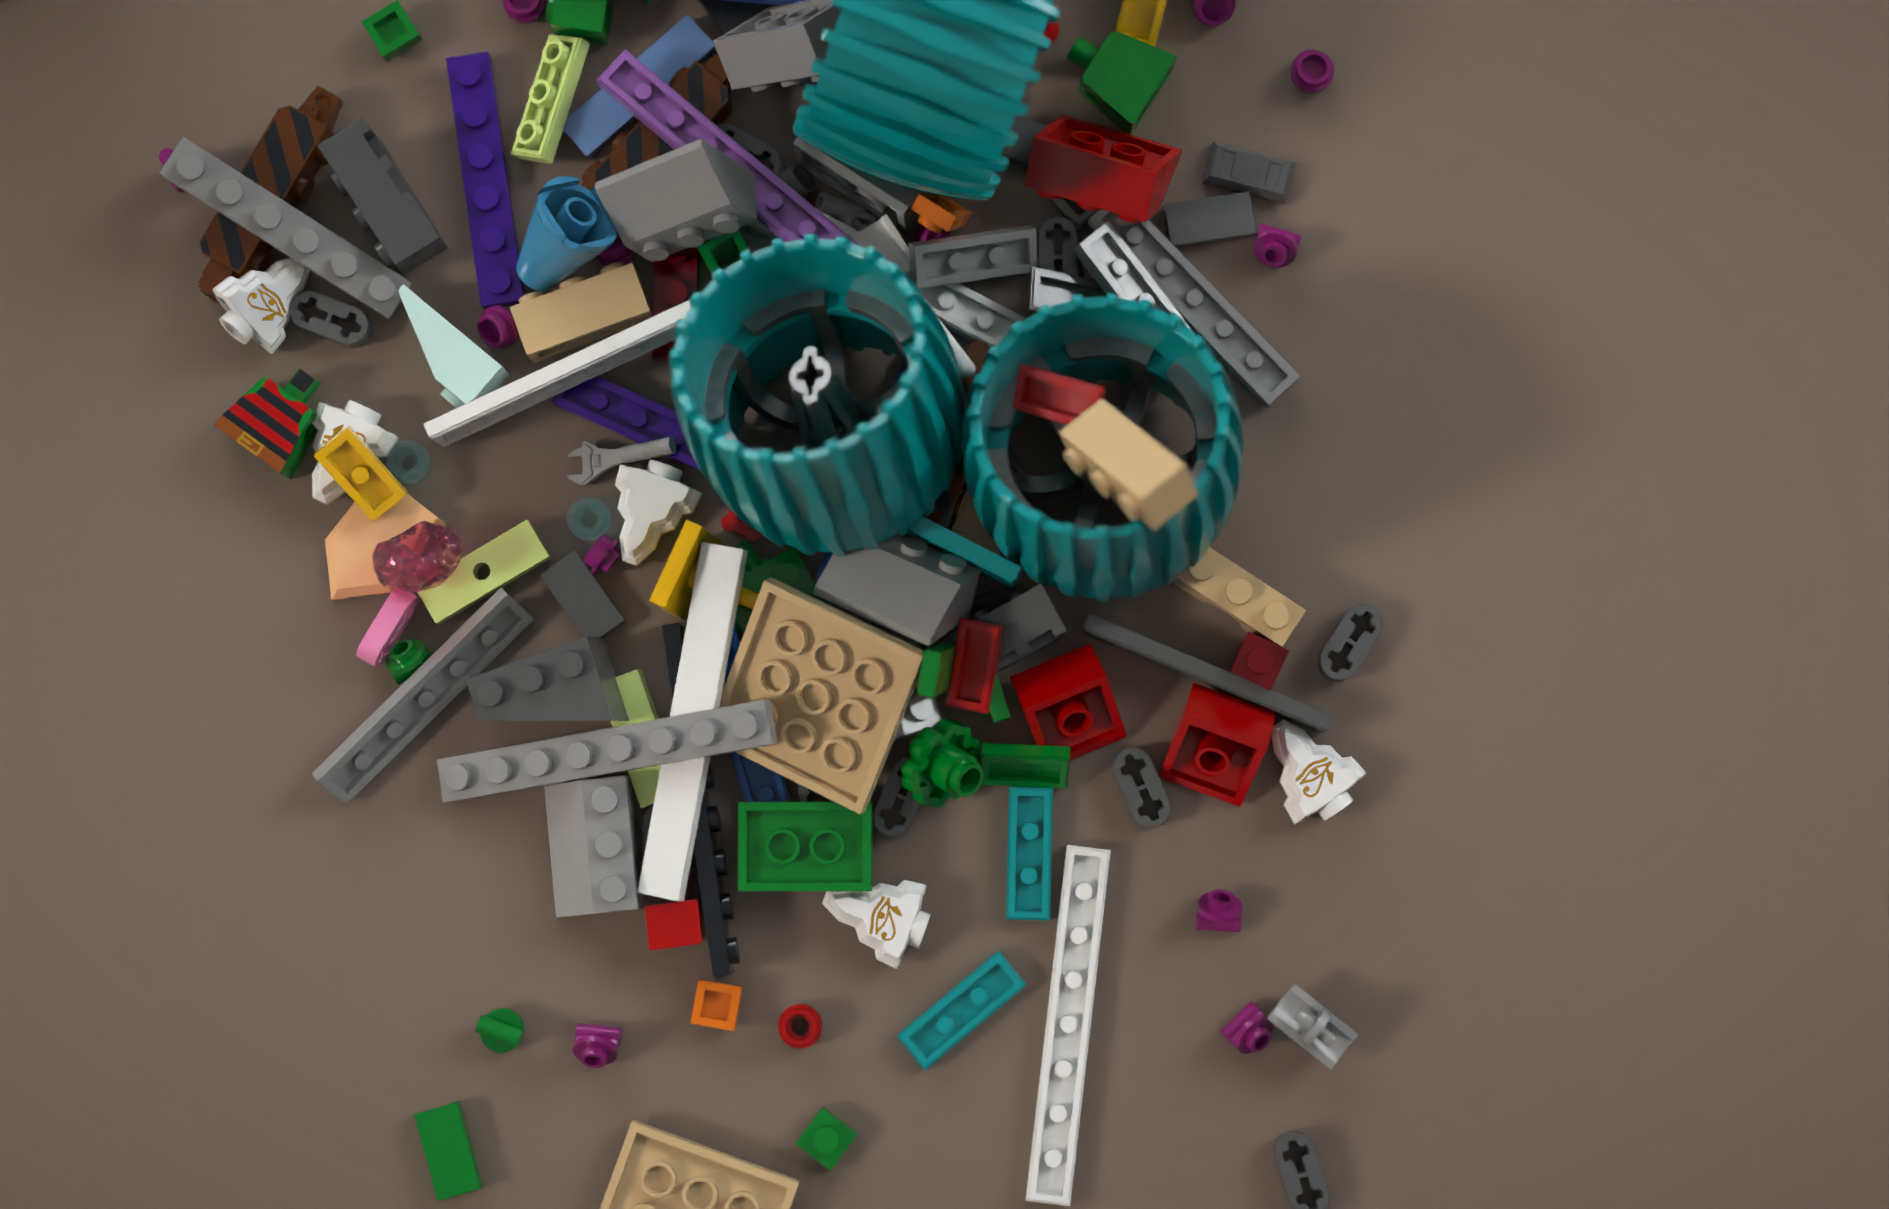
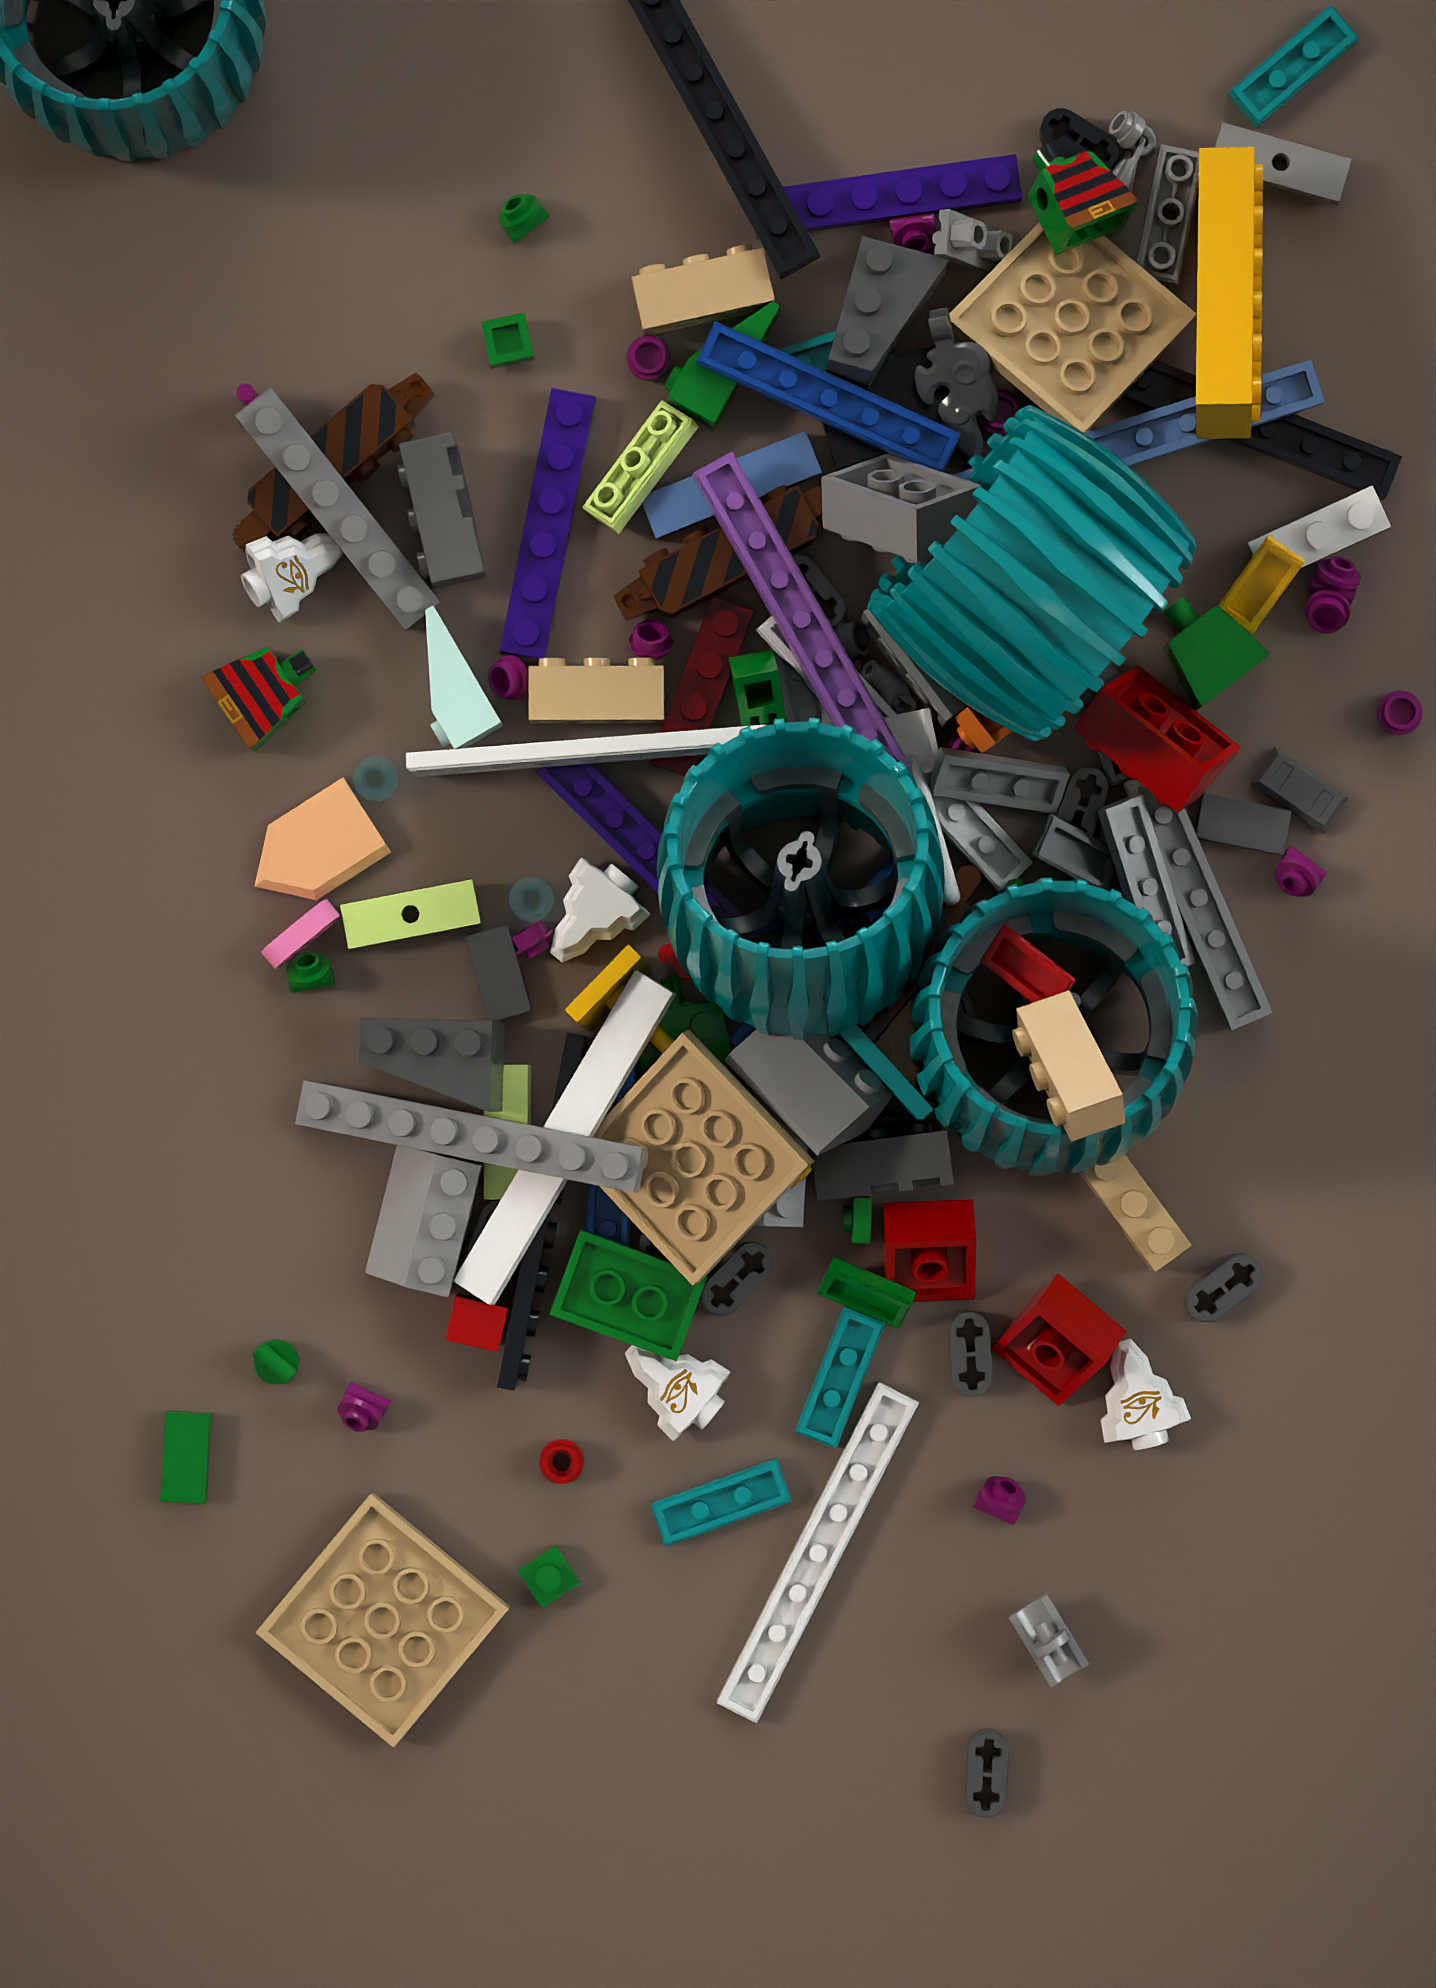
camera: 15 degrees right, 5 degrees up
(327, 328) = (356, 601): dark grey beam -> none
(332, 421) = (320, 742): white rock -> none
(360, 473) = (327, 778): yellow plate -> none
(418, 557) = (355, 881): clear pink hair -> none
(422, 696) = (312, 1014): light grey plate -> none
(563, 233) = (610, 615): dark azure cone -> none
(599, 460) = (561, 845): light grey piece -> none
(679, 200) = (732, 630): light grey slope -> none
(716, 1005) = (489, 1412): orange plate -> none
(936, 670) = (816, 1177): green tile -> none
(942, 764) = (789, 1265): green plant -> none
(974, 665) = (853, 1184): red tile -> none
(1206, 673) = (1073, 1268): dark grey tile -> none
(1249, 1030) = (987, 1620): magenta plate -> none
(1258, 660) = (1126, 1275): dark red brick -> none

